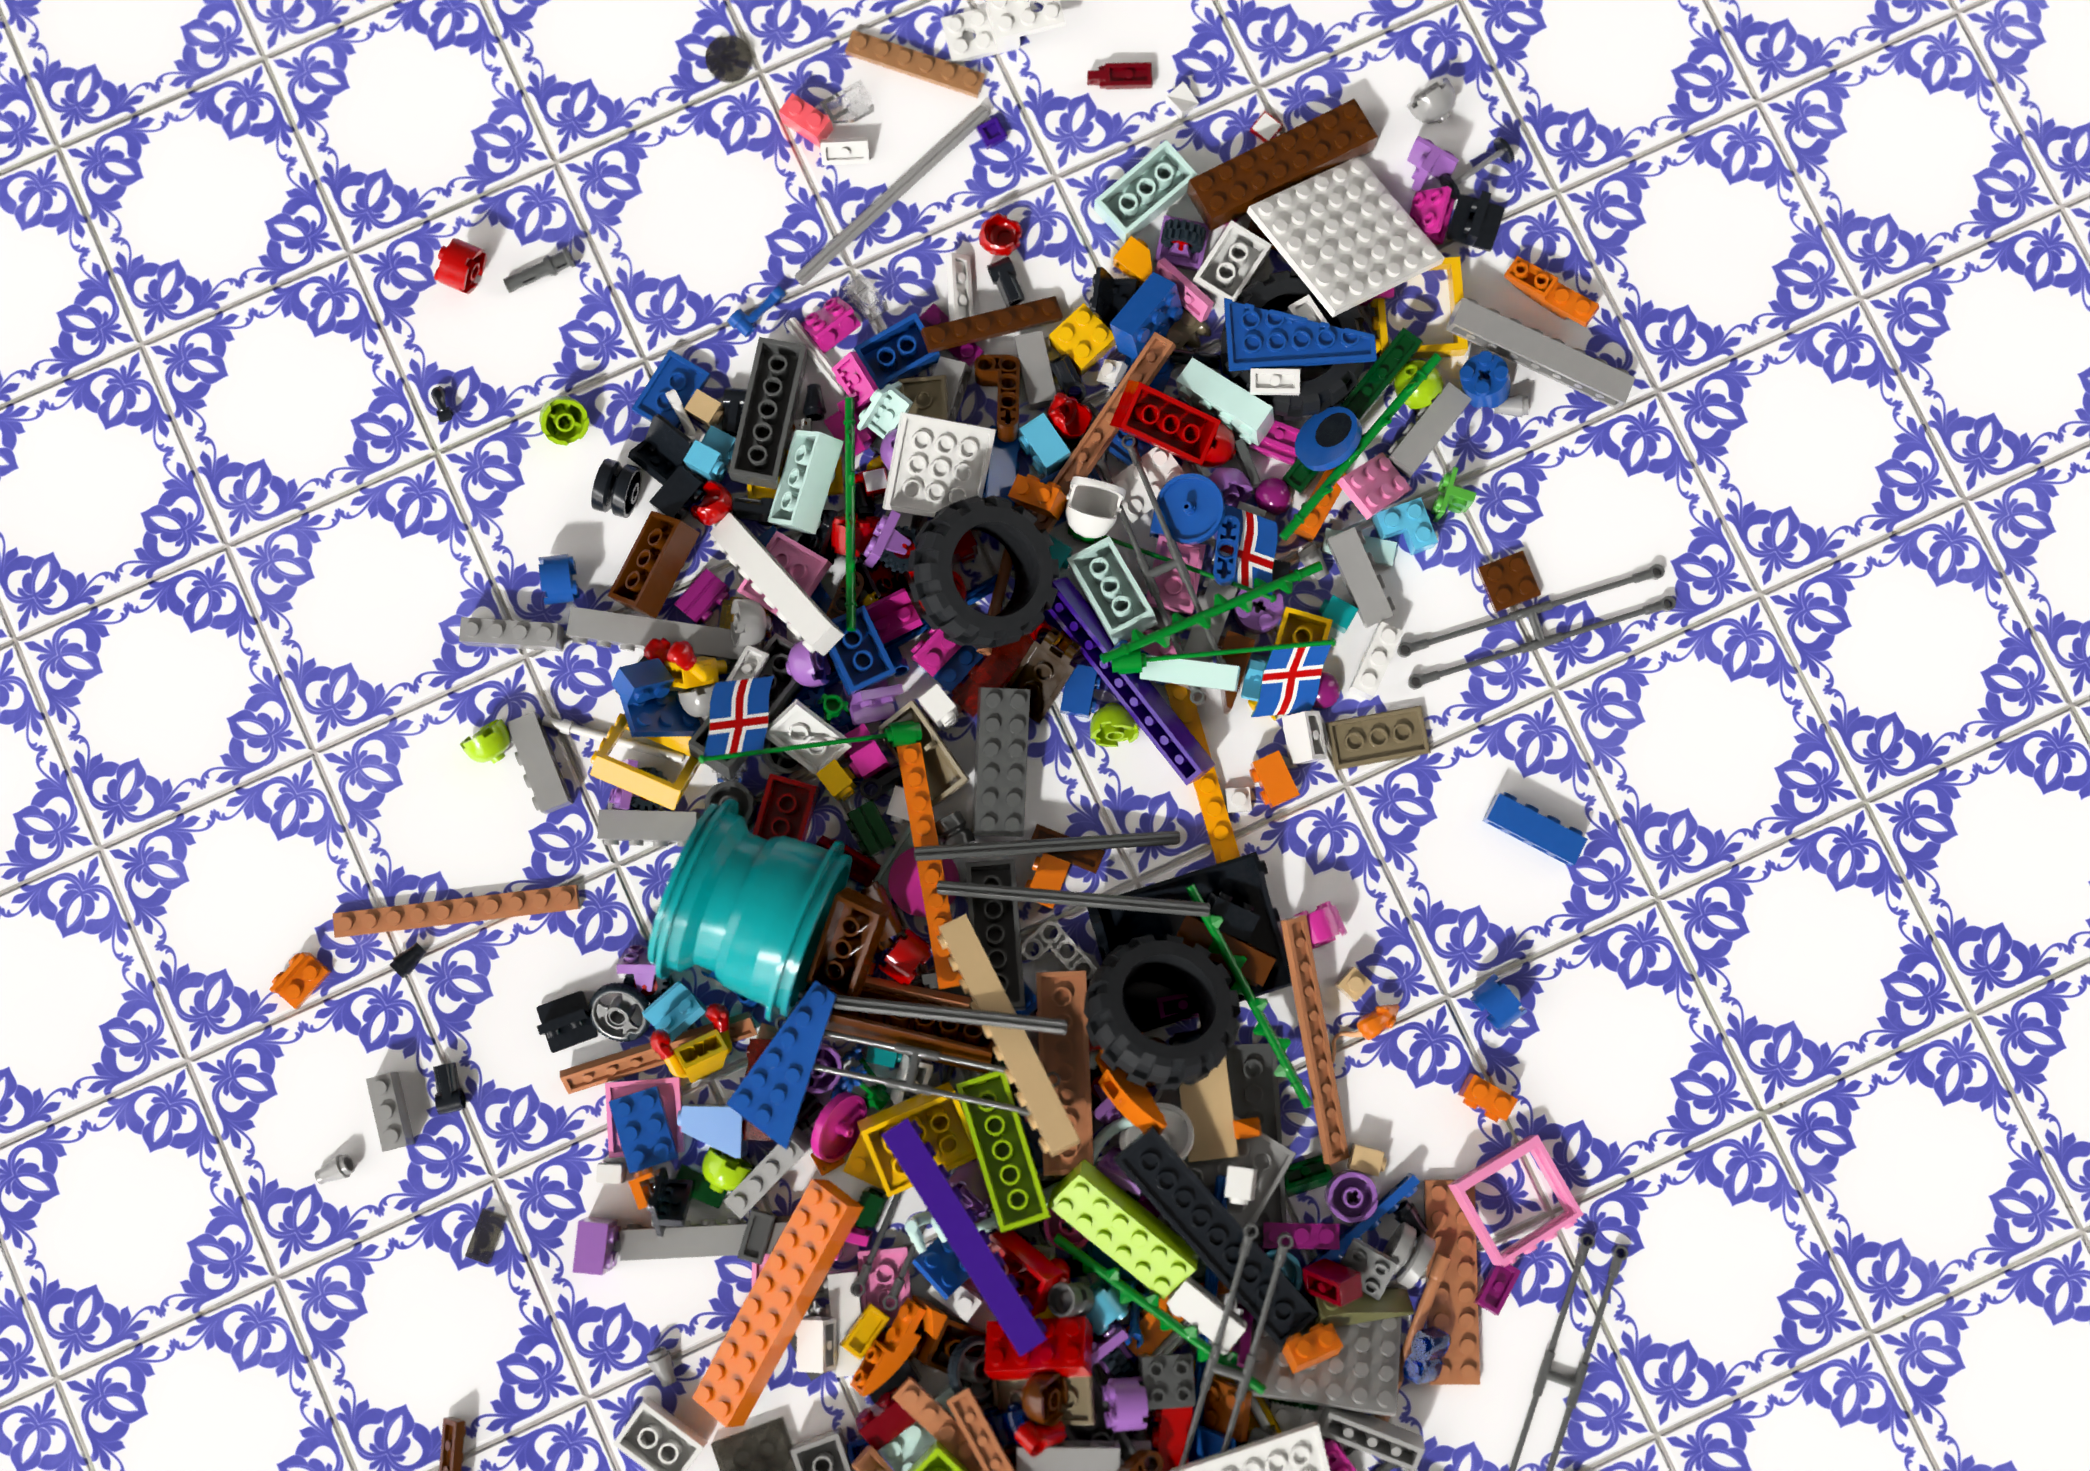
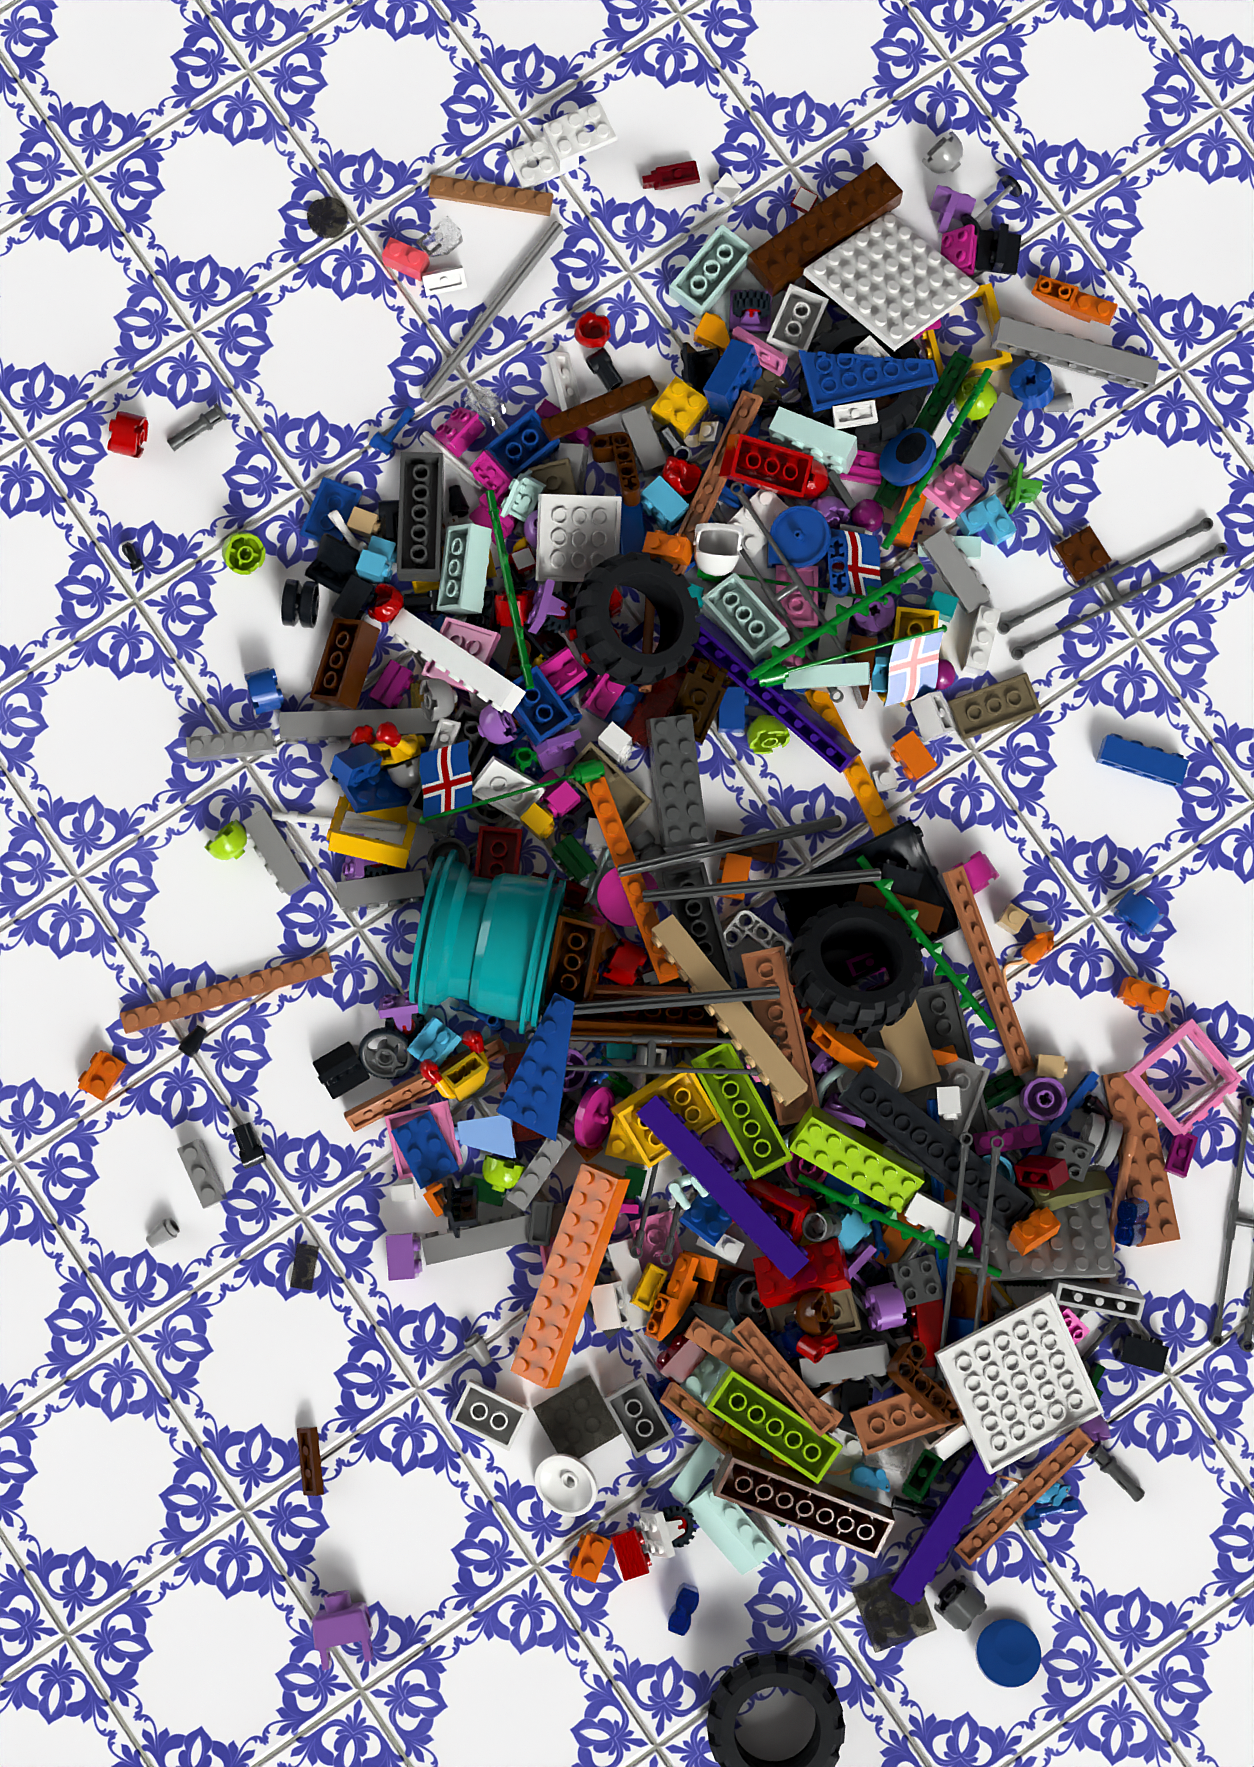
camera: 15 degrees left, 0 degrees up
(991, 132) = (568, 243): dark purple tile -> none

